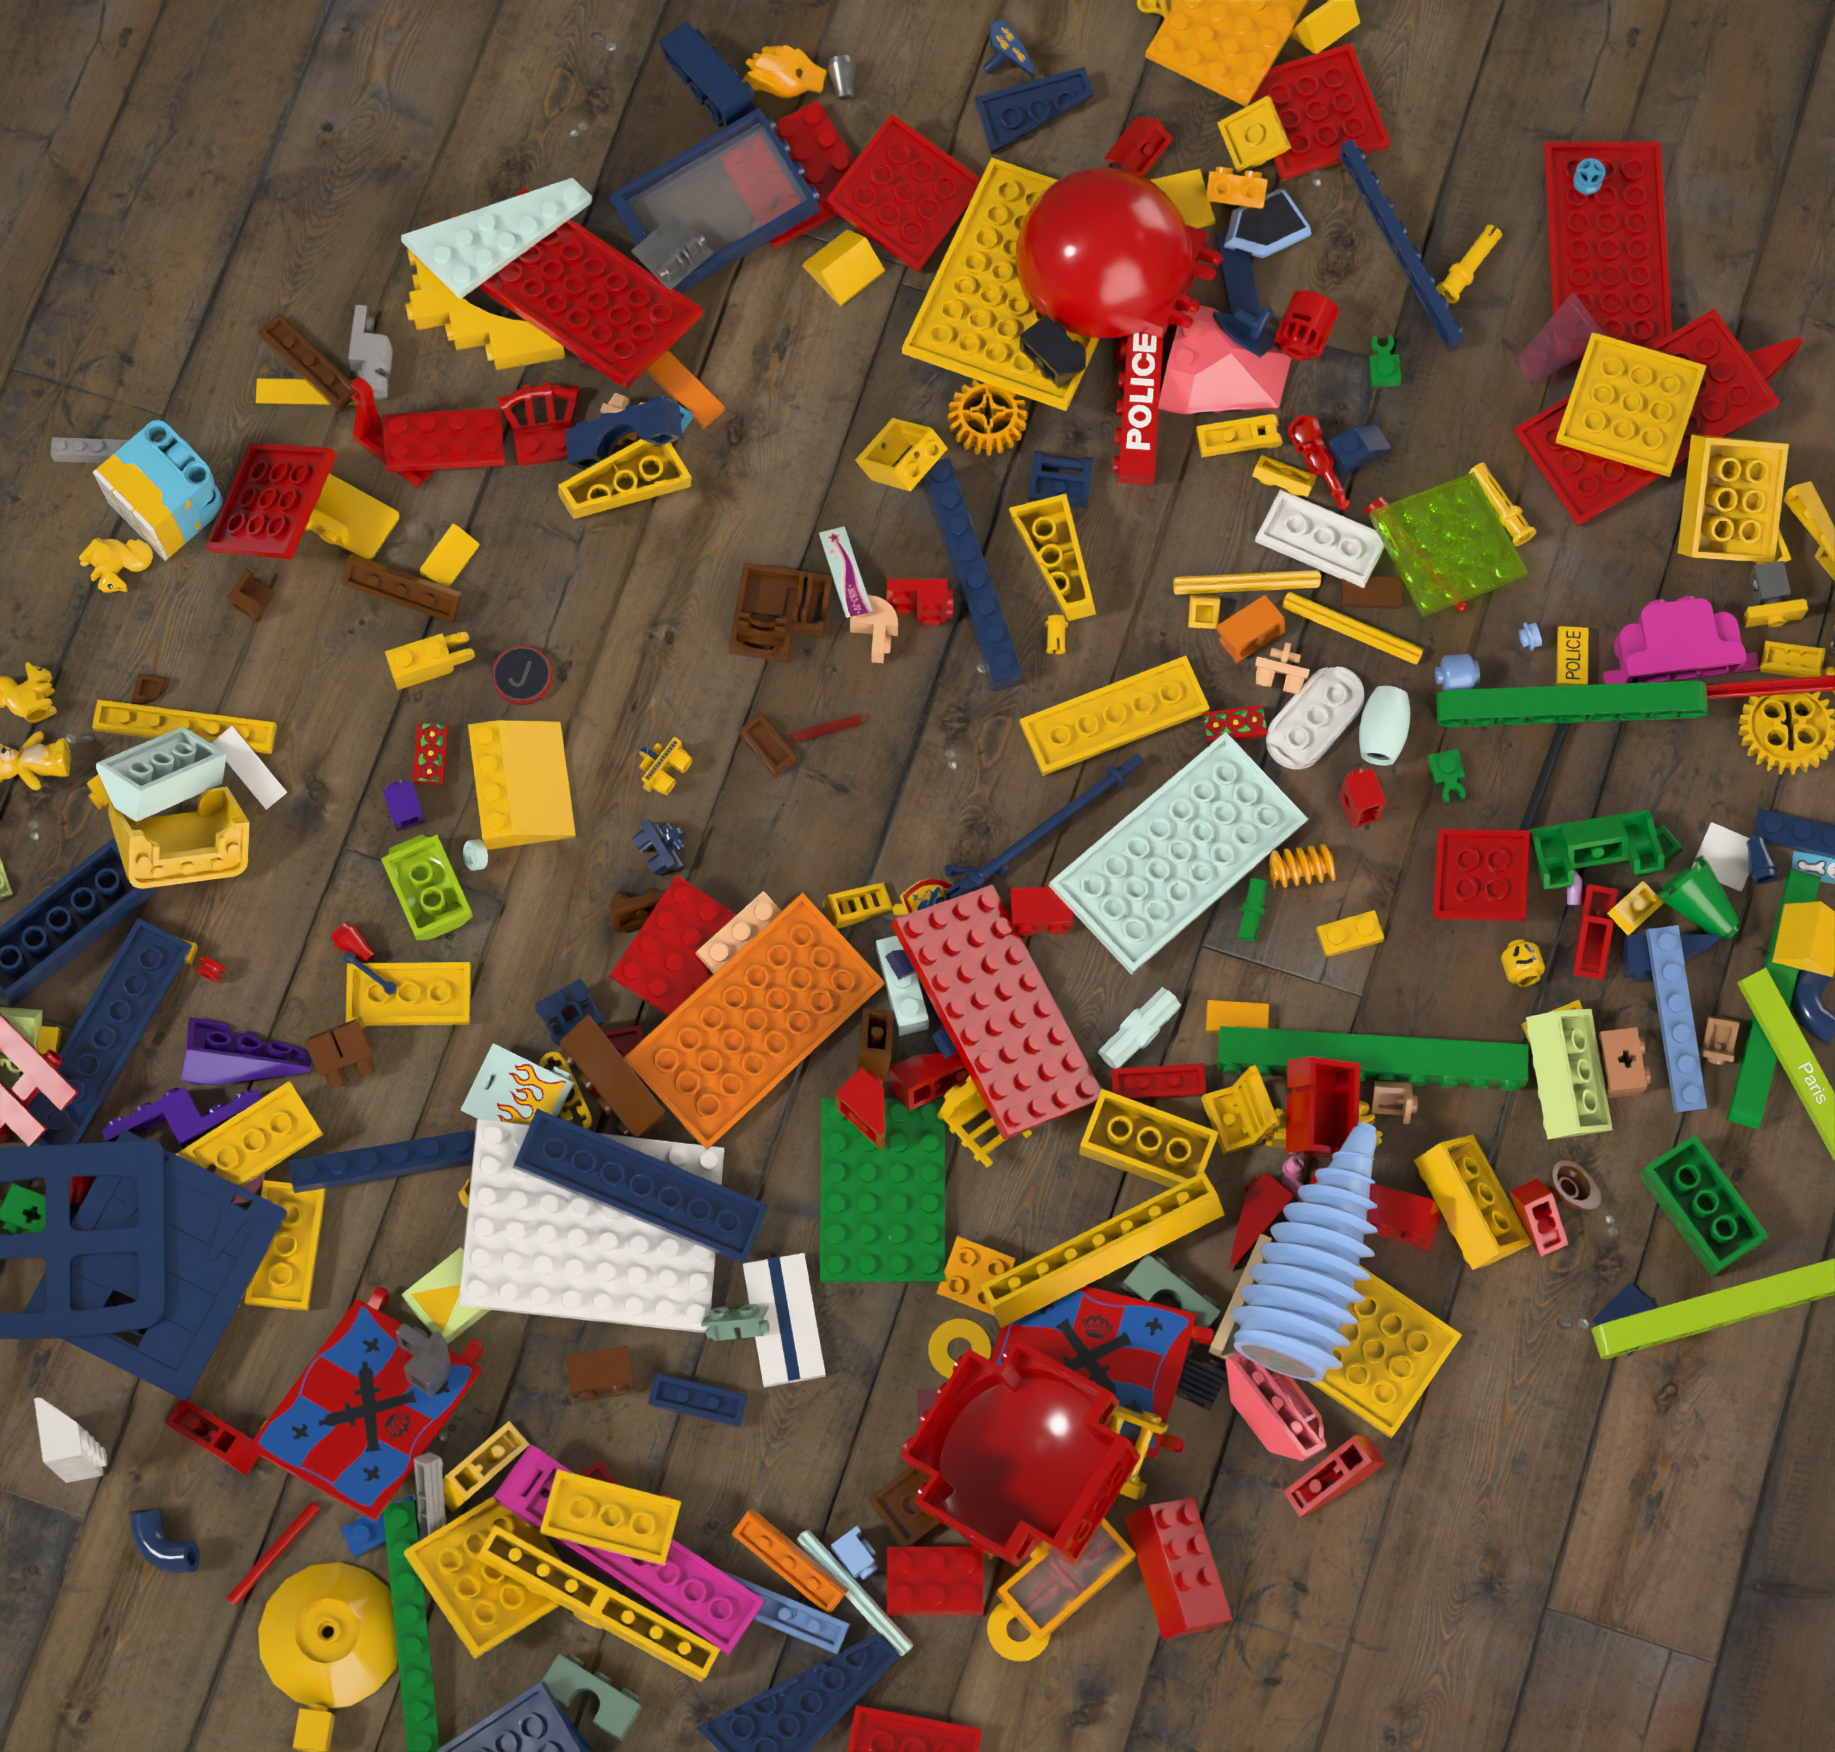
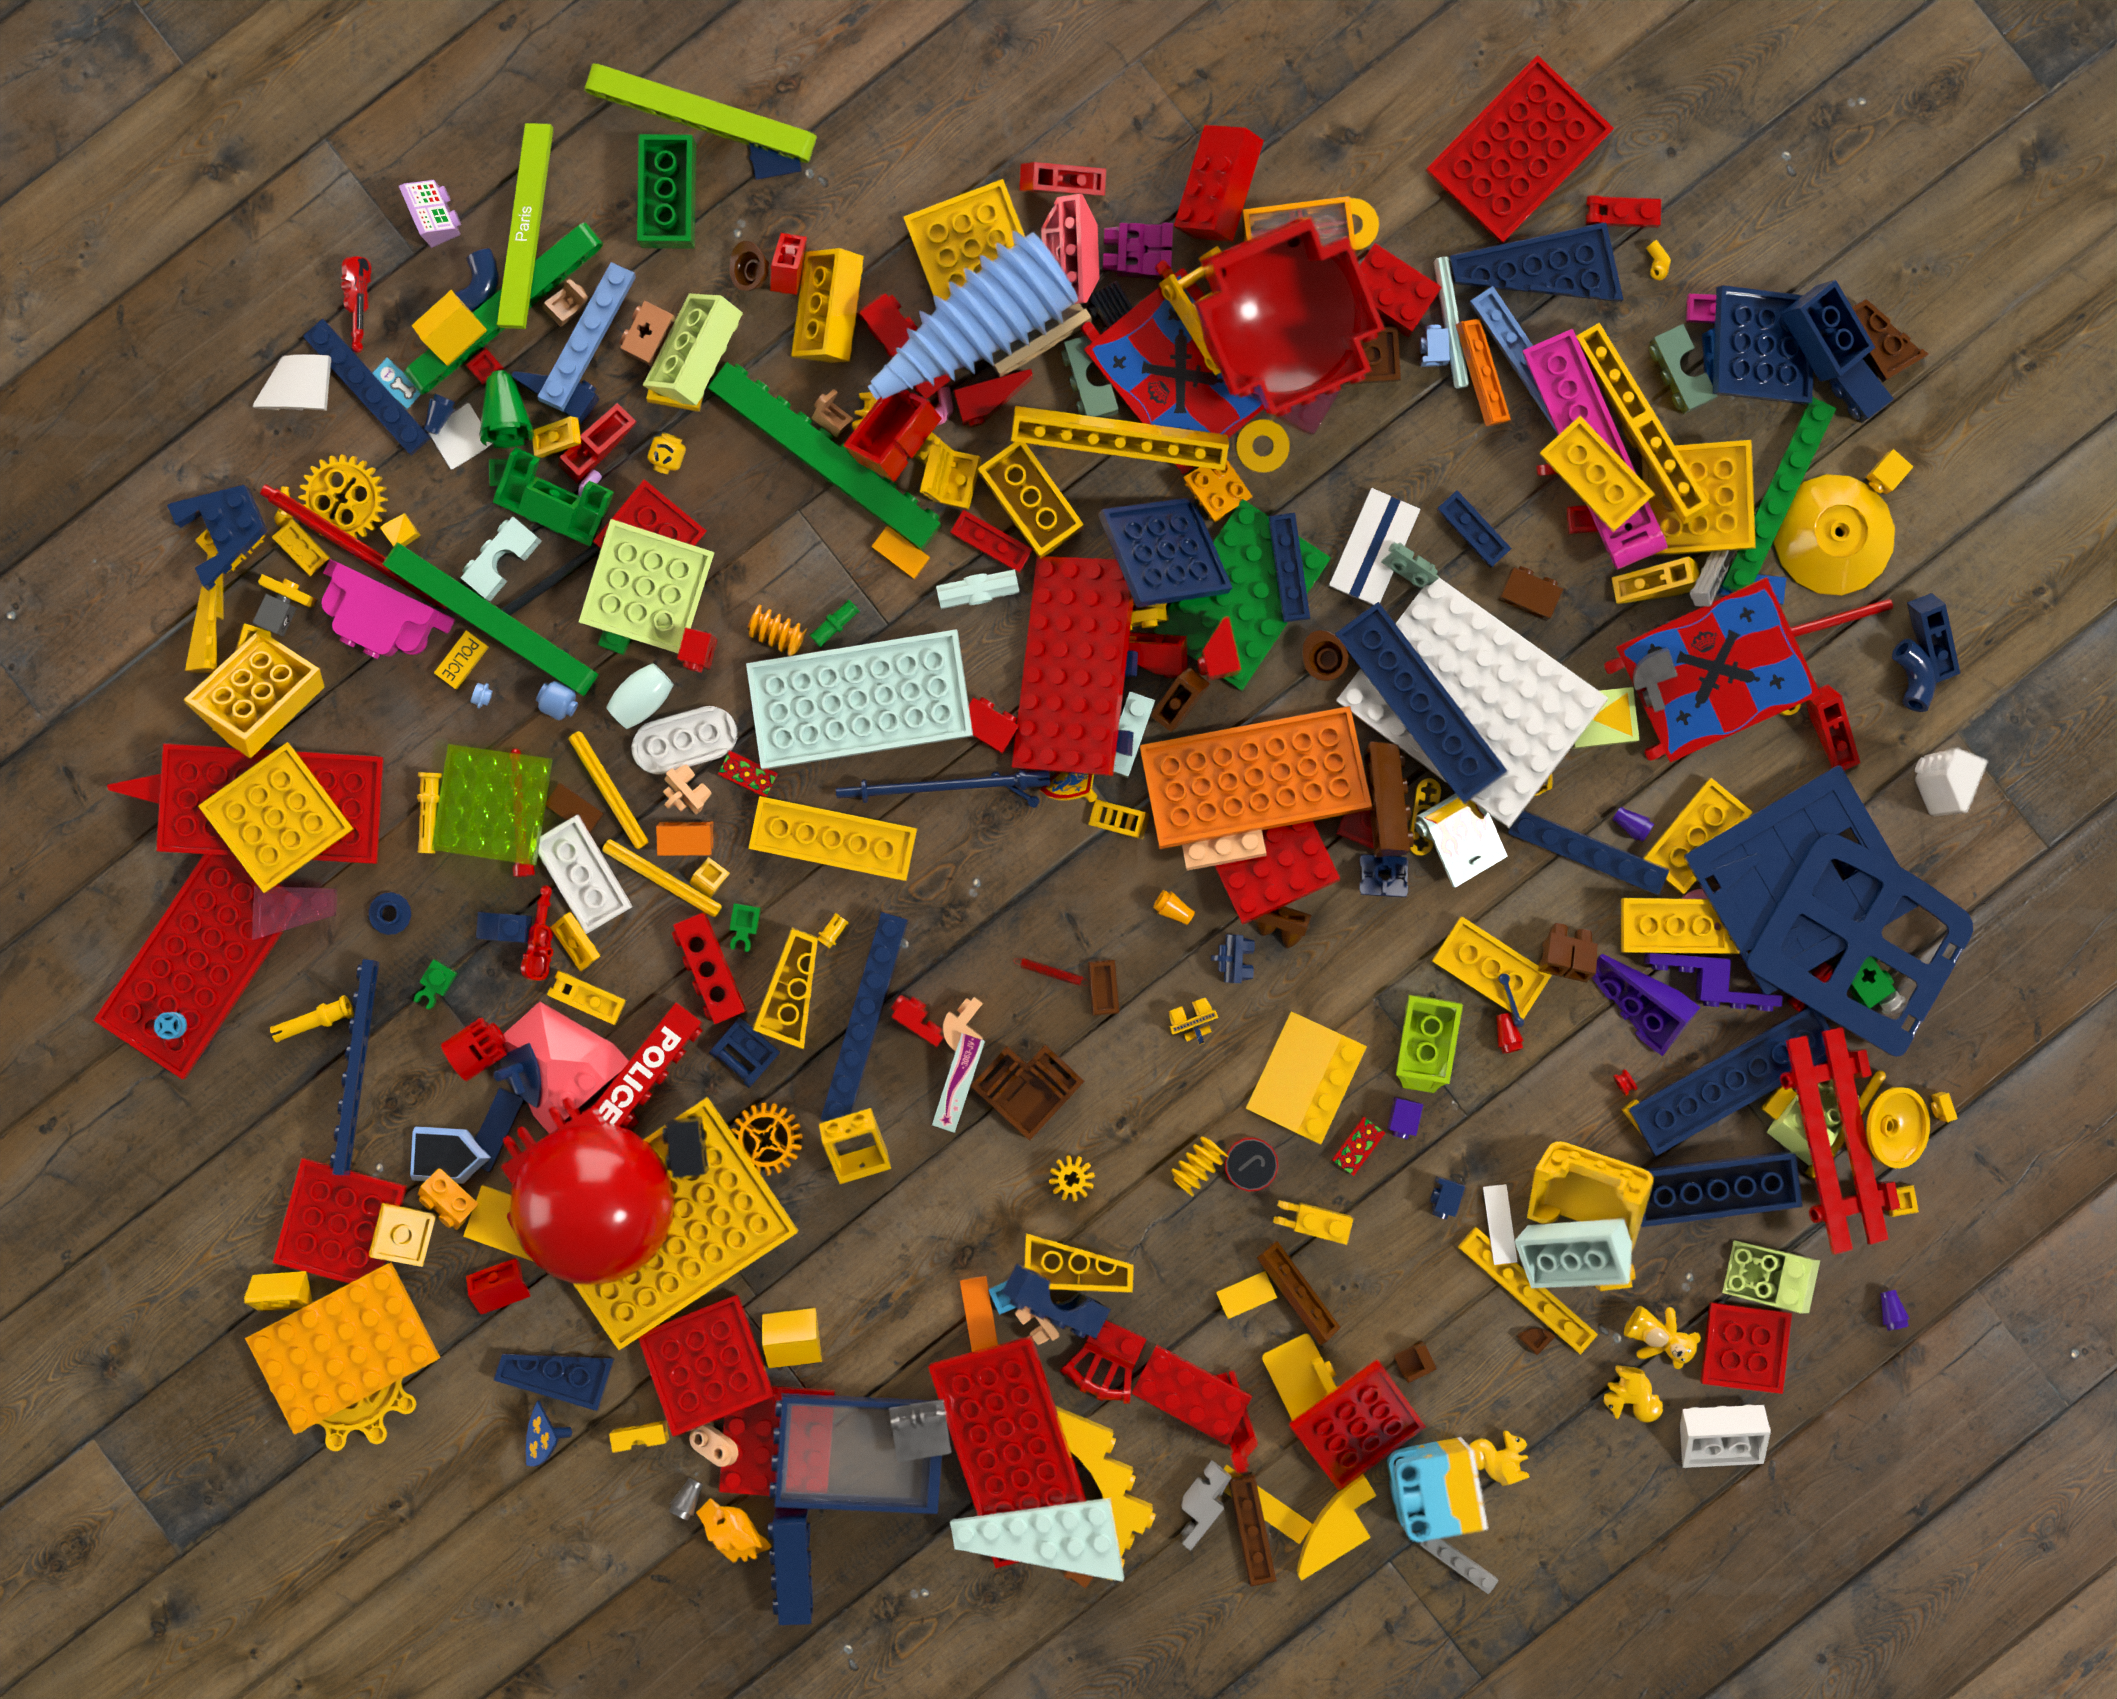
camera: 140 degrees left, 15 degrees up
(166, 1594) = (1934, 634): none -> dark blue slope
(230, 410) = (1336, 1528): none -> yellow slope
(316, 758) = (1446, 1198): none -> dark blue brick
(355, 1217) = (1633, 823): none -> dark purple cone
(475, 854) = (1376, 1042): light aqua tile -> none
(570, 639) = (1197, 1165): none -> yellow piece
(670, 556) = (1067, 1169): none -> yellow gear
(753, 856) = (1172, 907): none -> light orange cone
(763, 1178) = (1324, 655): none -> reddish brown piece
(848, 133) = (712, 1442): none -> light nougat plate
(854, 1240) = (1289, 567): none -> dark blue tile
(914, 108) = (648, 1434): none -> yellow piece
(984, 1167) = (1165, 551): none -> dark blue plate
(1142, 590) = (744, 921): none -> green plate
(1151, 544) = (683, 935): none -> red brick
(1206, 1477) = (1132, 245): none -> magenta hips
(1350, 934) = (775, 560): yellow plate -> none
(1451, 824) = (645, 586): none -> yellowish green plate
(1466, 409) = (376, 913): none -> dark blue piece
(1607, 742) = (483, 572): none -> light aqua arch
(1714, 733) = (400, 530): none -> yellow slope
(1751, 935) = (484, 365): none -> red tile

